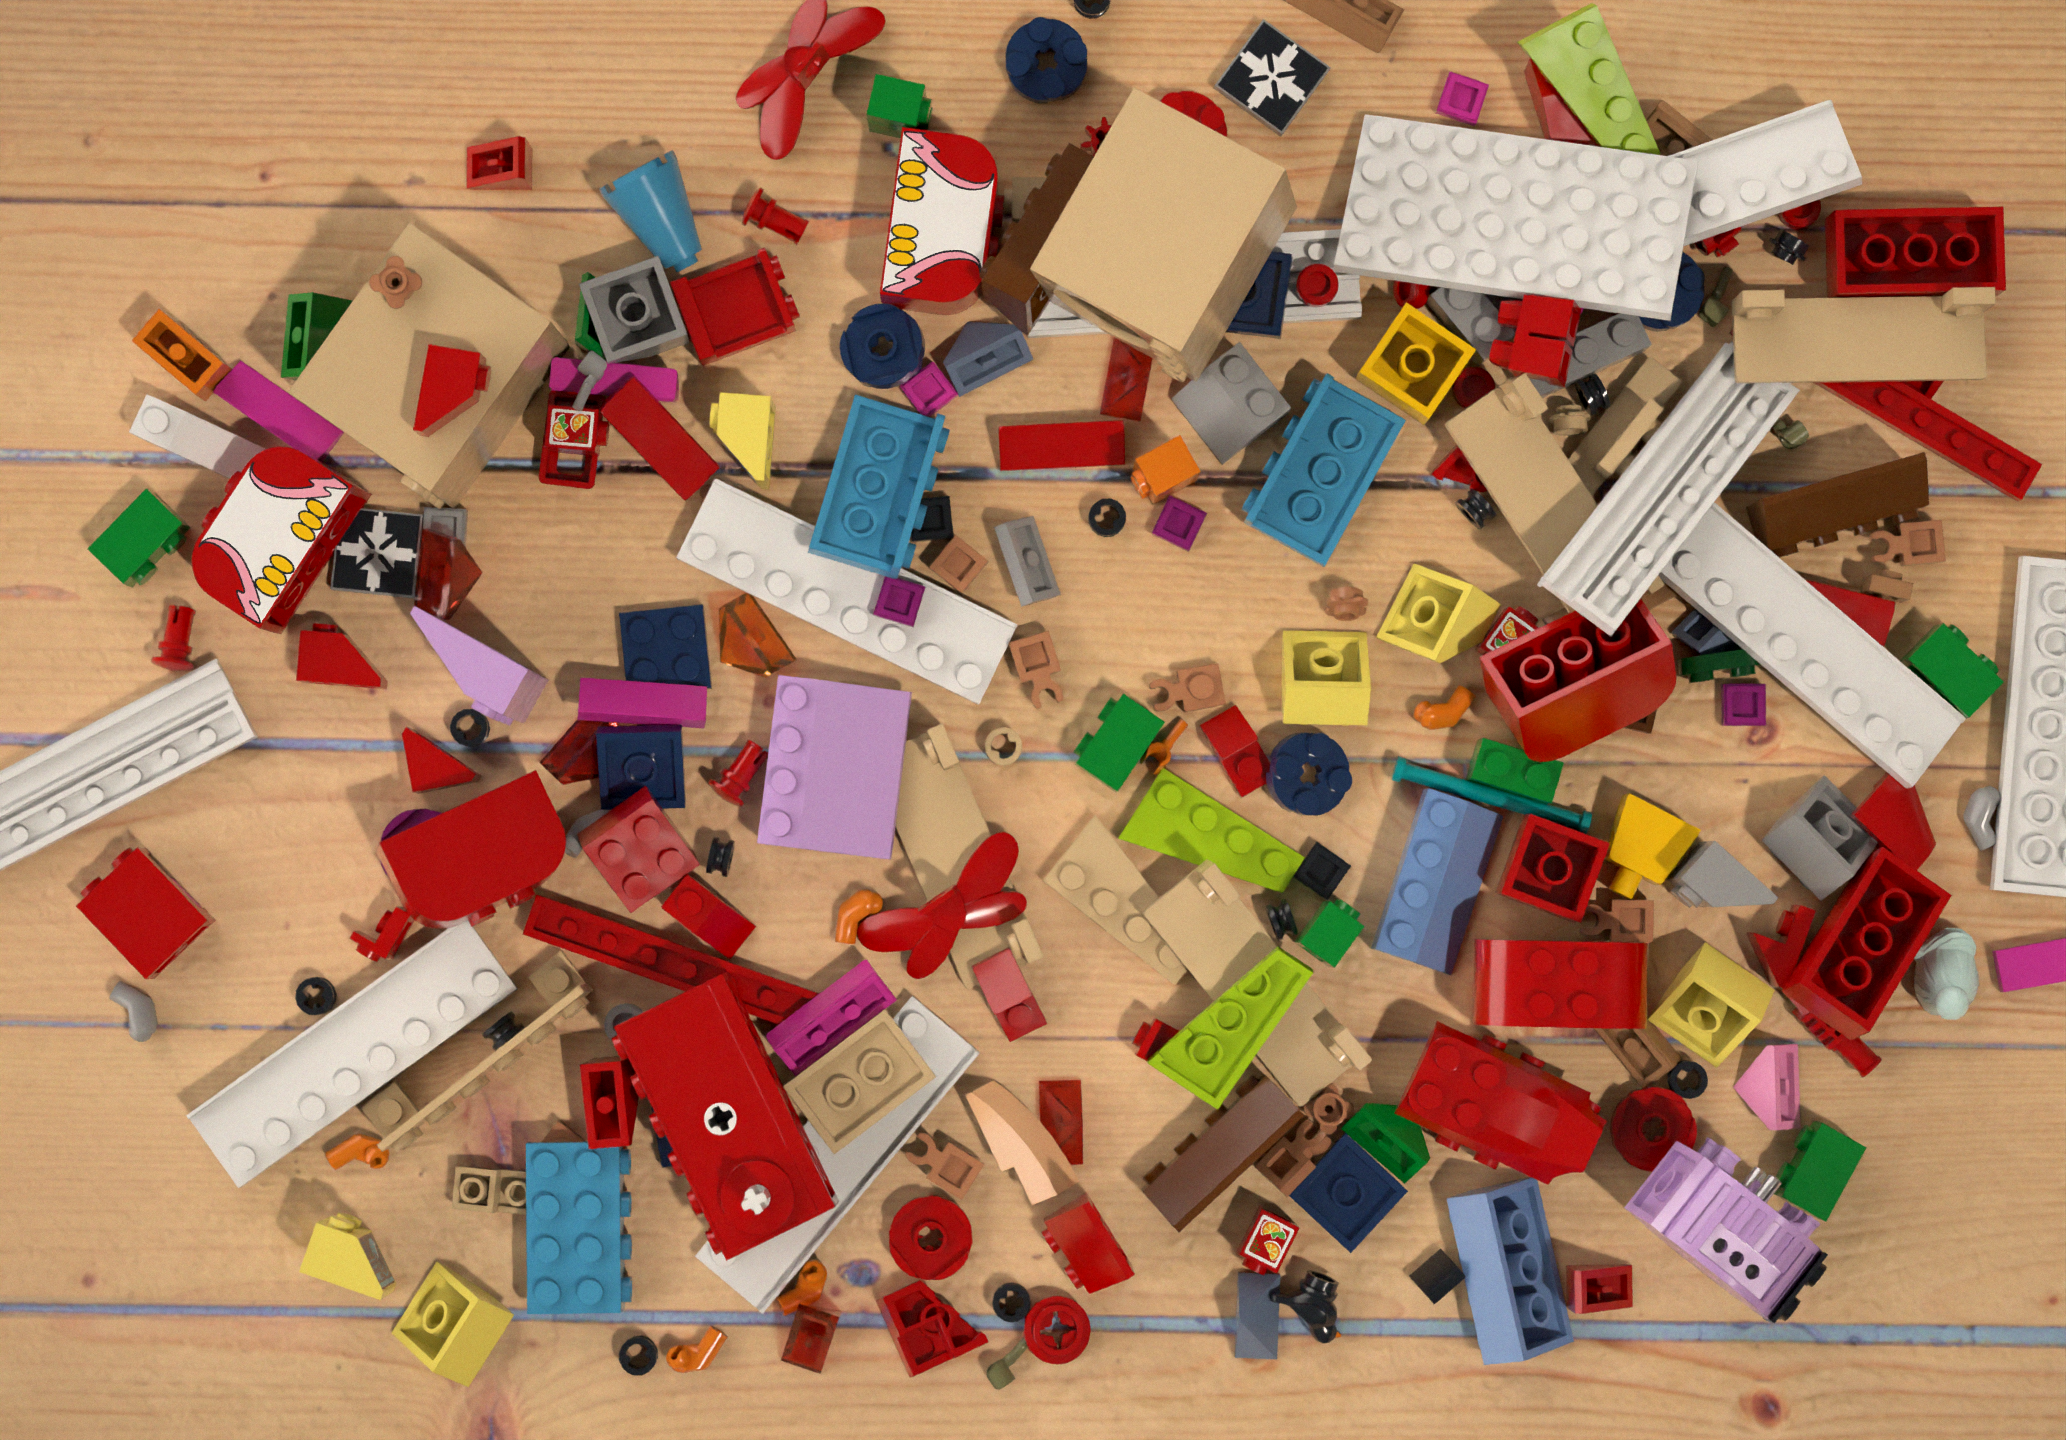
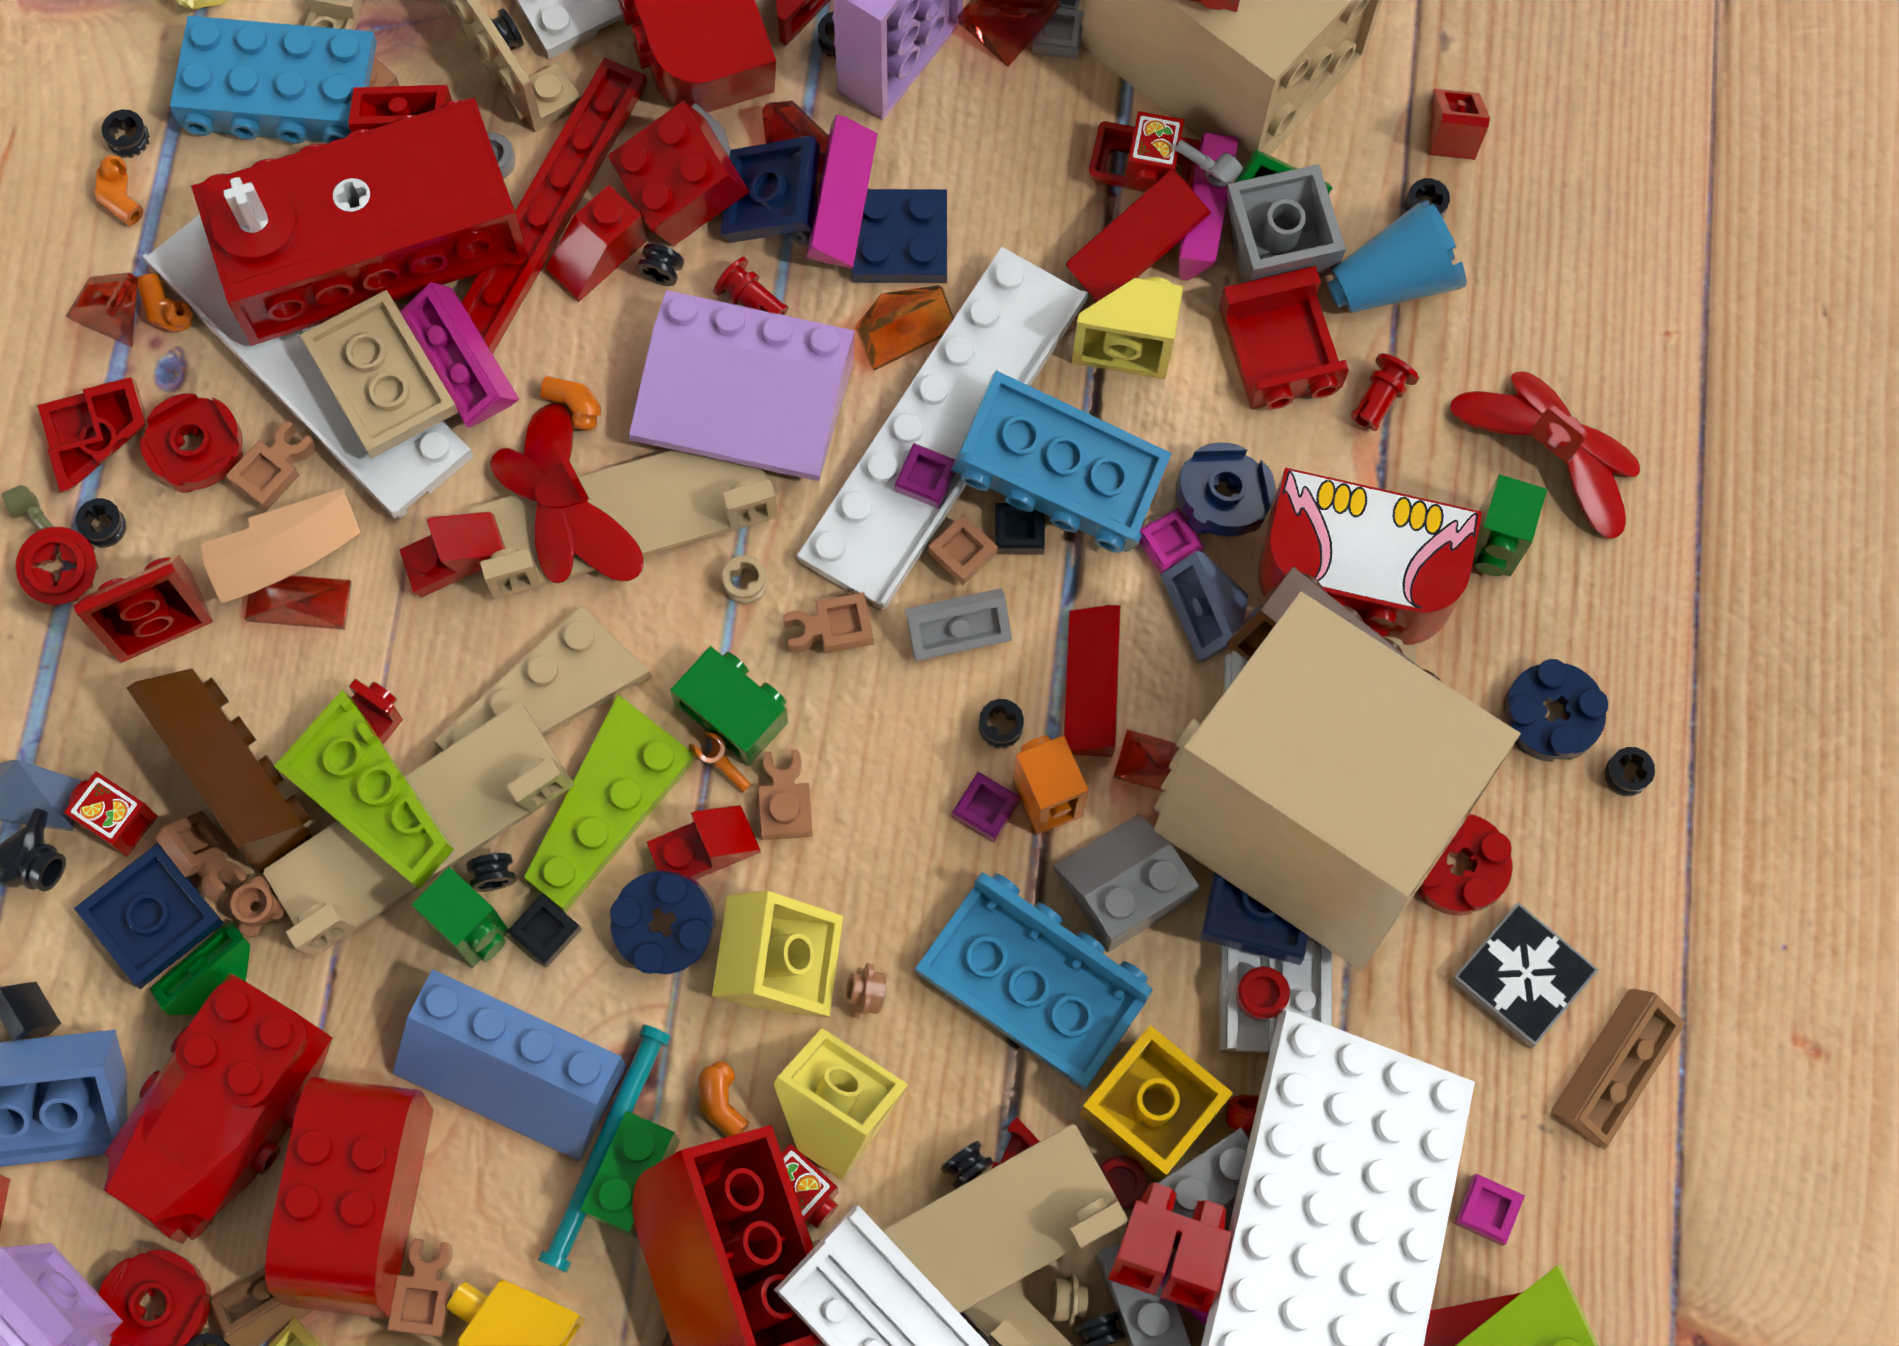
camera: 100 degrees right, 15 degrees down
(575, 179) = (1428, 187): none -> black bush
(1552, 868) = (499, 1206): red brick -> none

